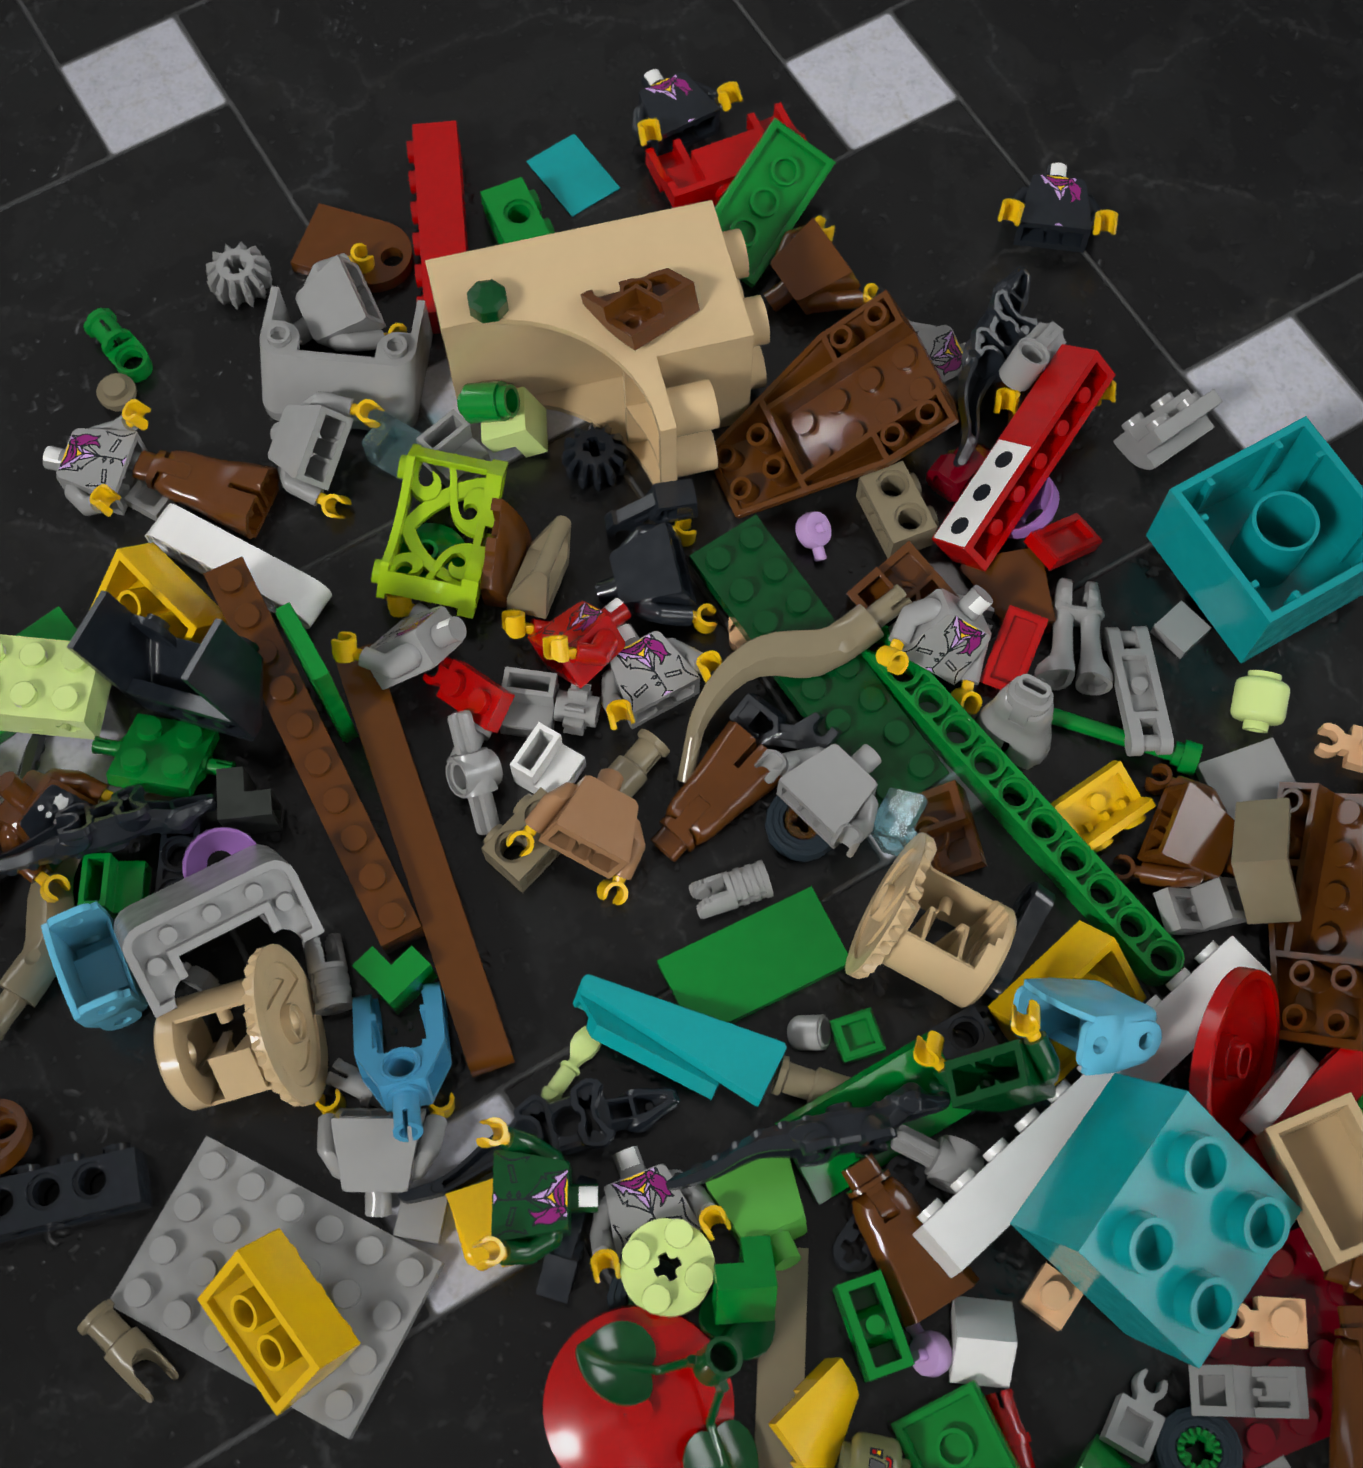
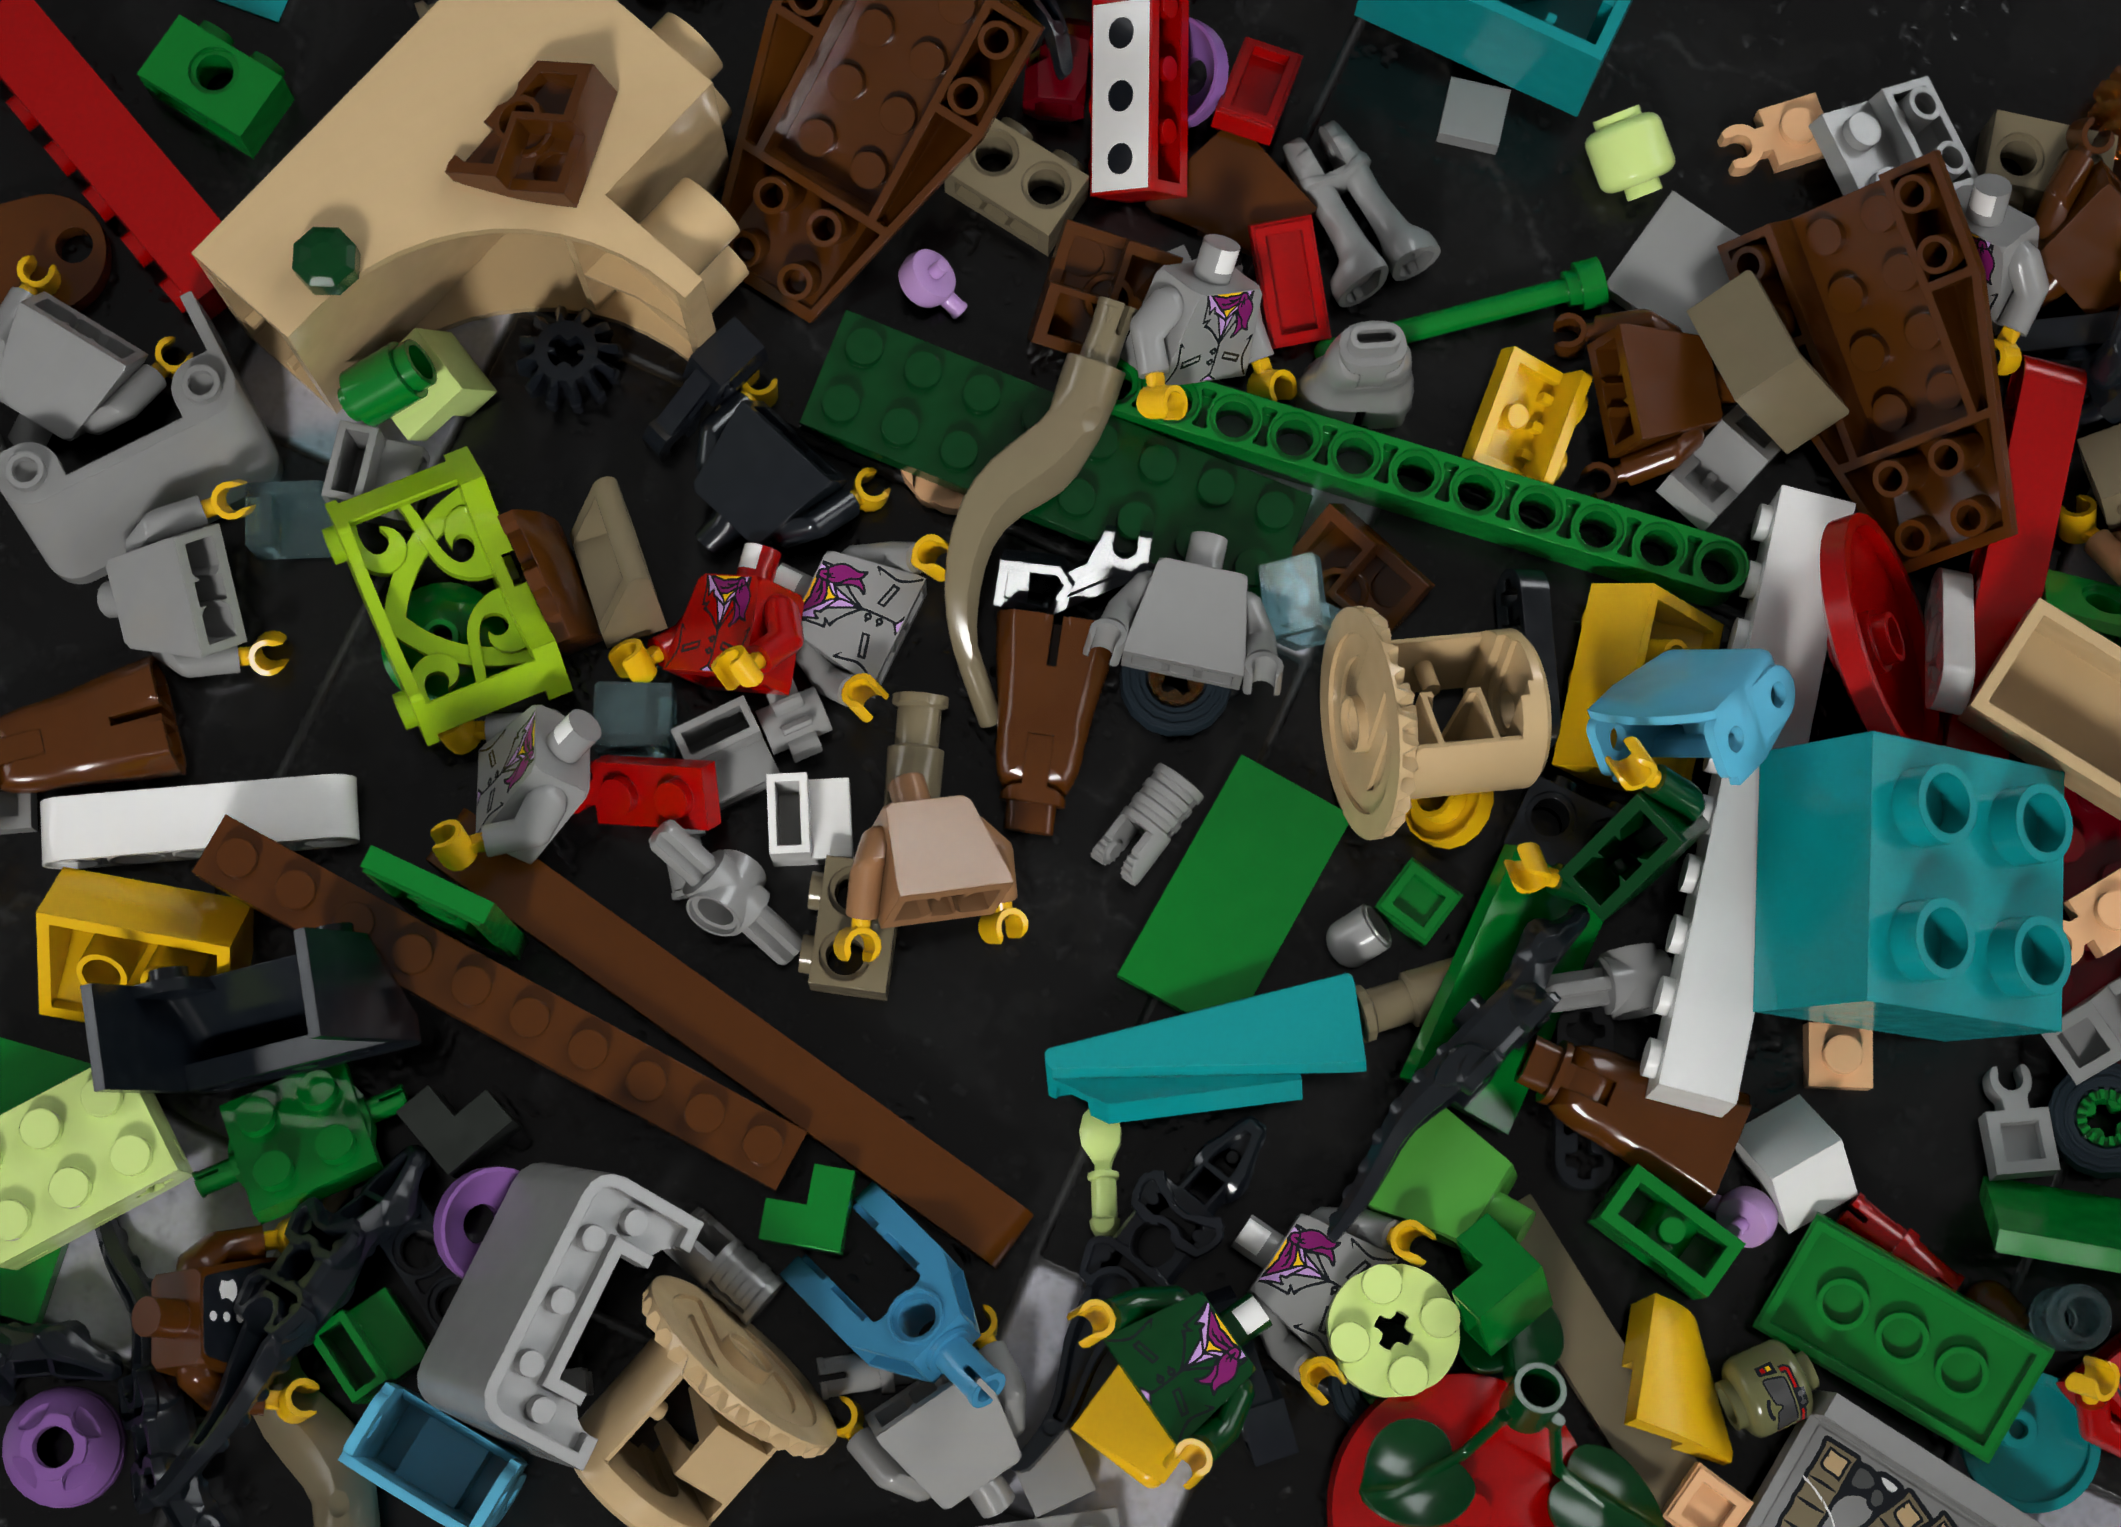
camera: 40 degrees left, 10 degrees up
(493, 650) = (635, 718): none -> clear light blue panel
(906, 997) = (1451, 819): none -> yellow plate
(1138, 690) = (1475, 235): light grey plate -> none

